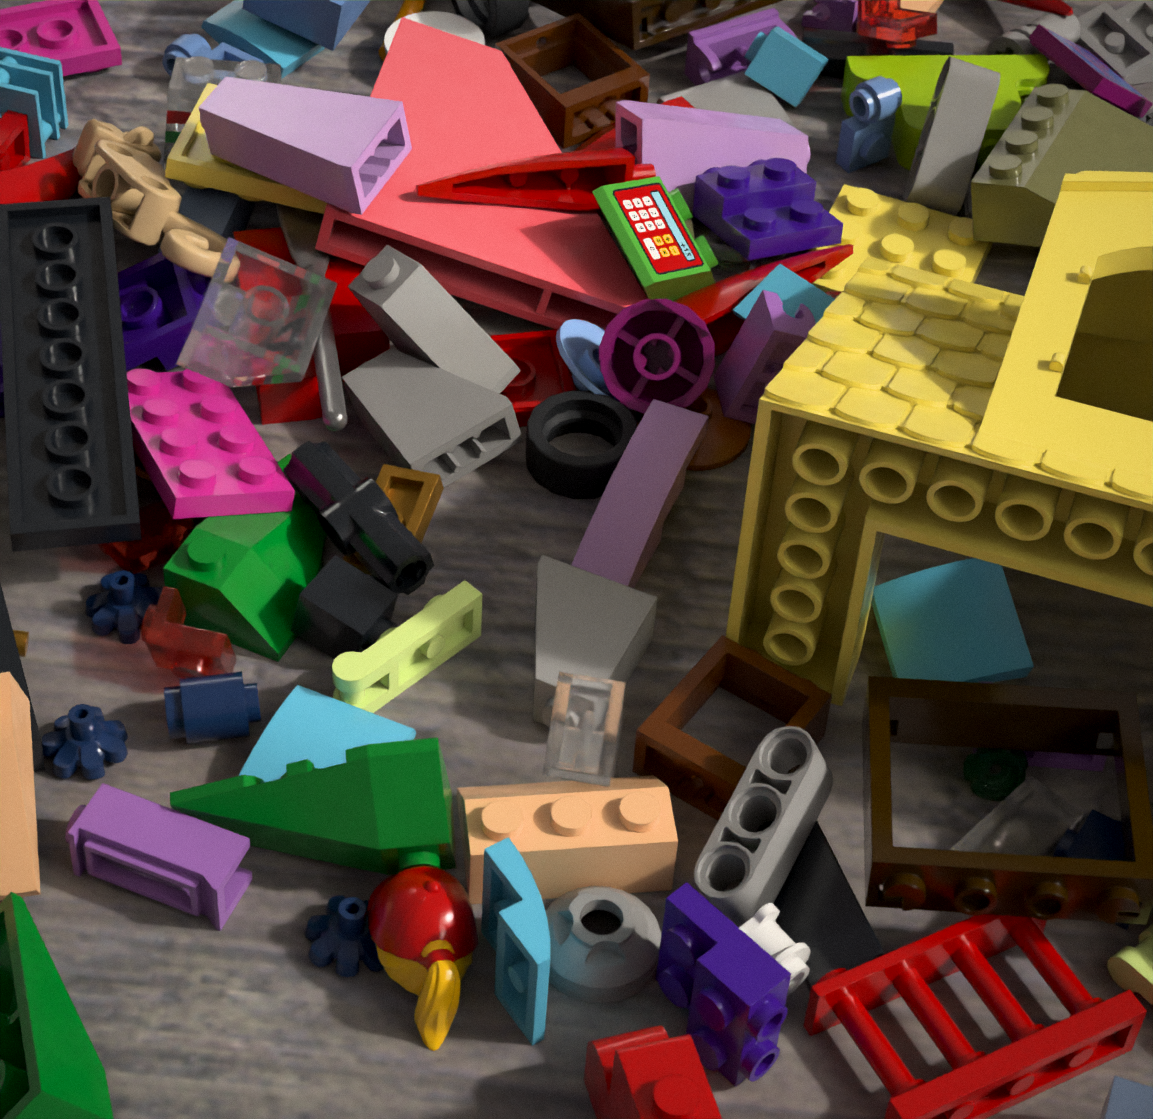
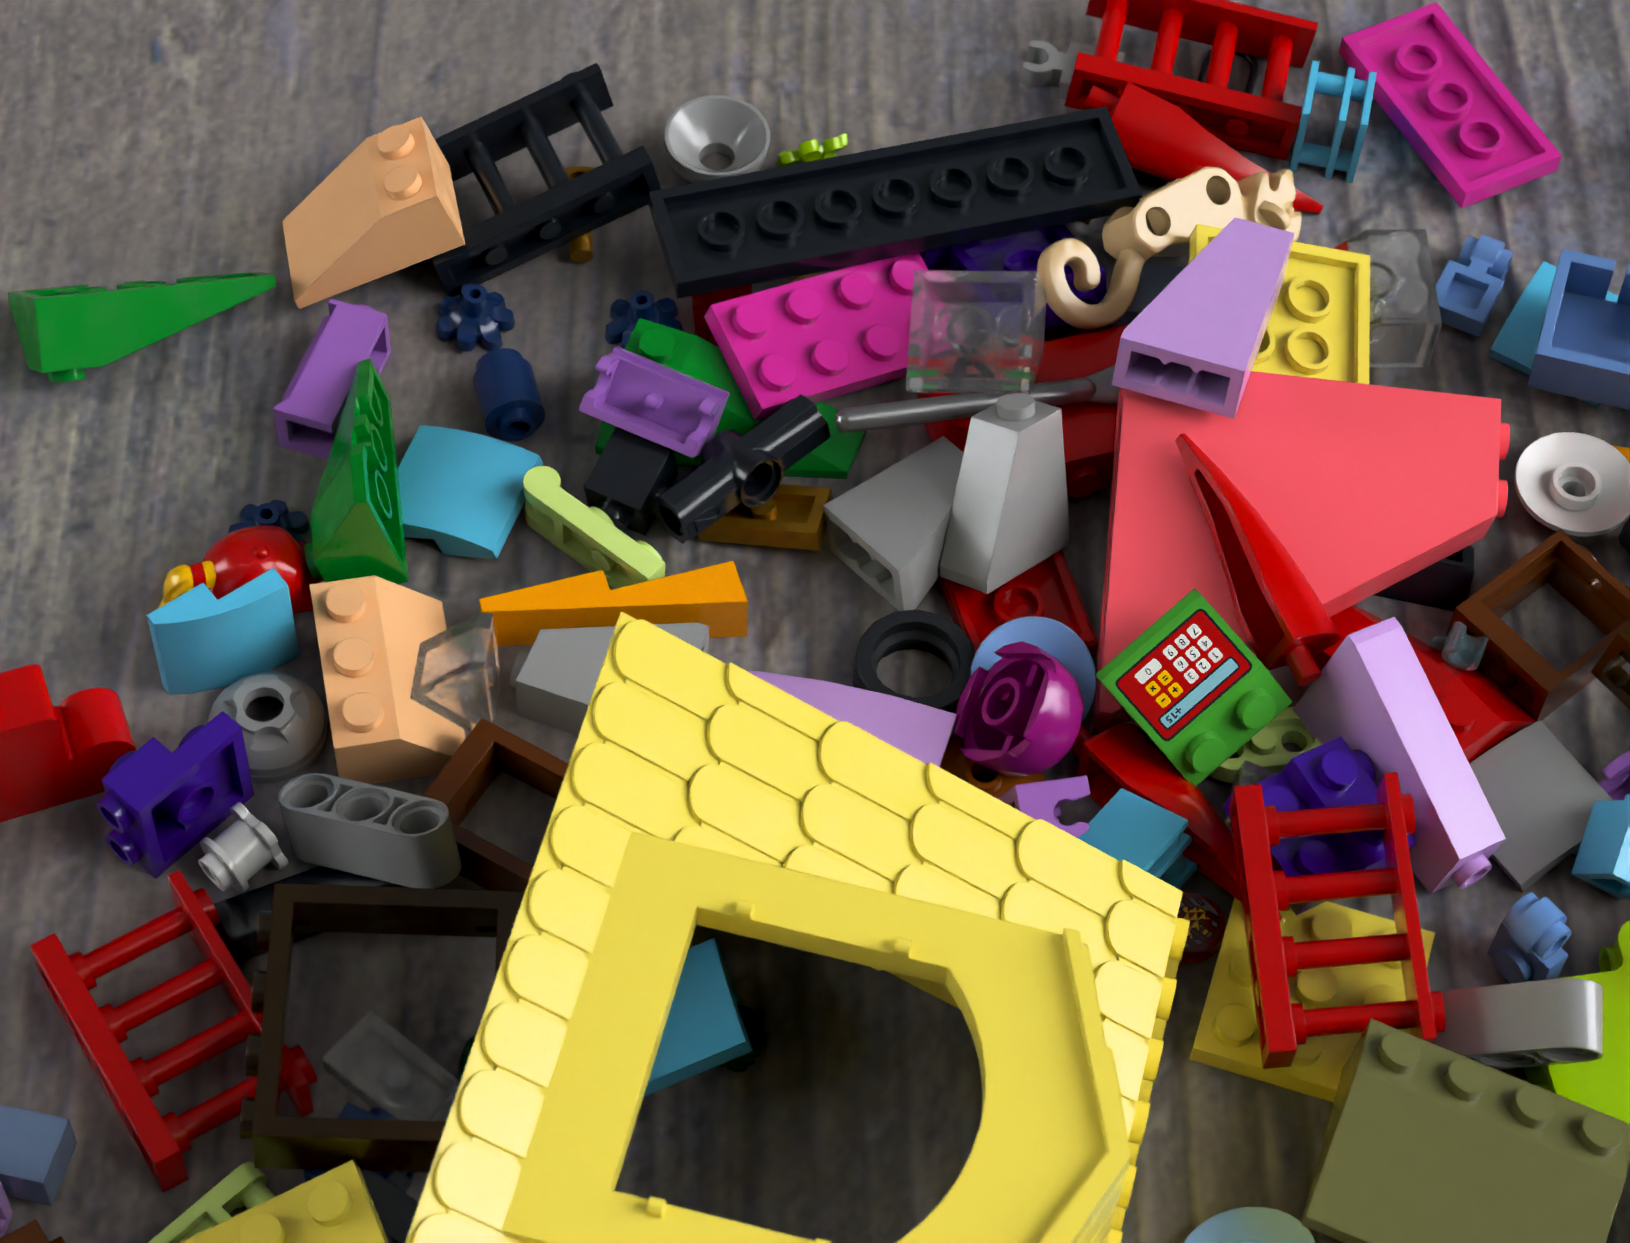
camera: 85 degrees right, 10 degrees up
(183, 648) = (574, 359): clear red bracket -> none
(278, 563) = (655, 402): none -> medium lavender hinge
(489, 645) = (701, 595): none -> light orange slope
(596, 110) = (1460, 648): none -> clear light blue hand
(858, 231) = (1278, 957): none -> red fence

